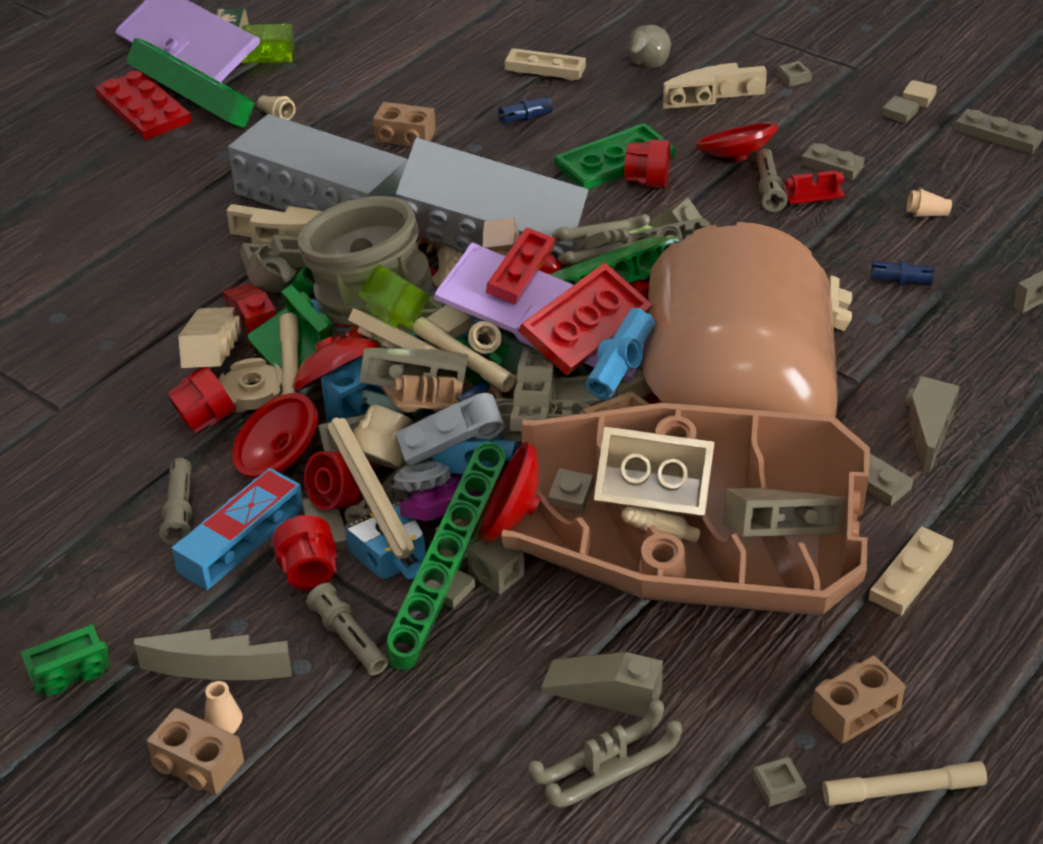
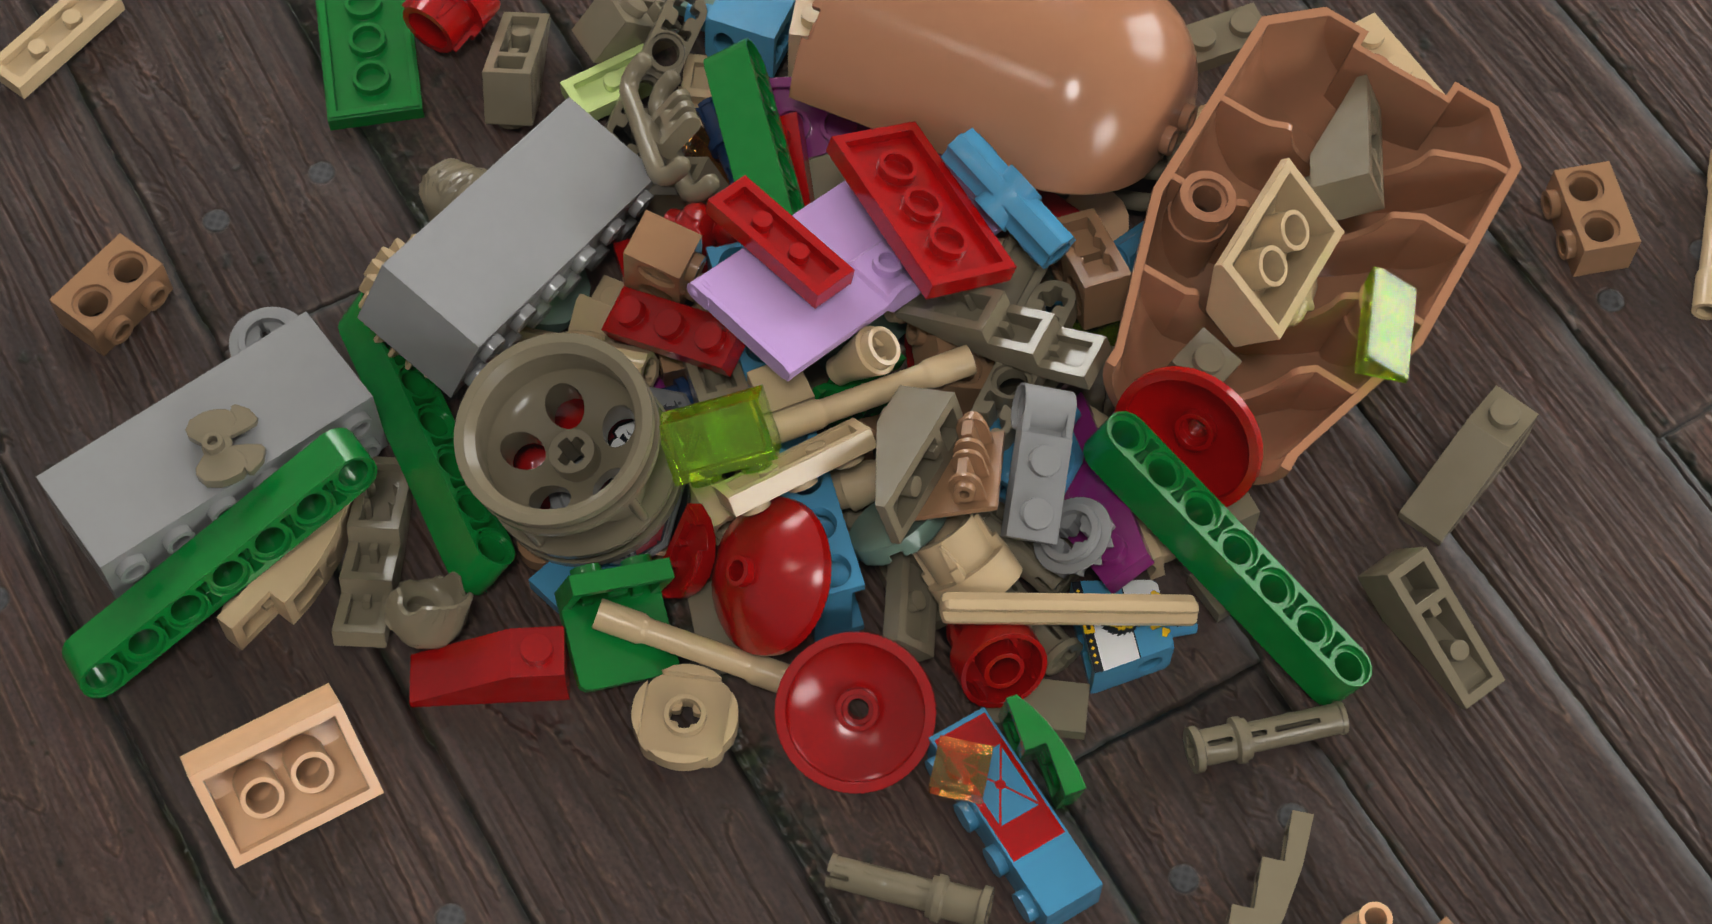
camera: 70 degrees left, 20 degrees up
(159, 258) = (281, 775): none -> light nougat slope
(201, 399) = (713, 794): red piece -> none
(209, 337) = (594, 738): tan brick -> none
(250, 481) = (961, 769): none -> clear orange plate
(260, 191) = (218, 562): none -> green beam
(278, 502) = (1035, 739): none -> green slope
(304, 158) = (222, 460): none -> dark tan piece
(305, 551) = (1123, 741): red piece -> none
(466, 689) = (1431, 623): none -> dark tan slope
(525, 110) = (174, 112): dark blue pin -> none
(606, 759) = (1585, 509): dark tan piece -> none
(620, 199) = (515, 69): none -> dark tan slope
(636, 547) = (1386, 327): none -> clear neon green slope
(779, 781) = (1669, 350): dark tan tile -> none

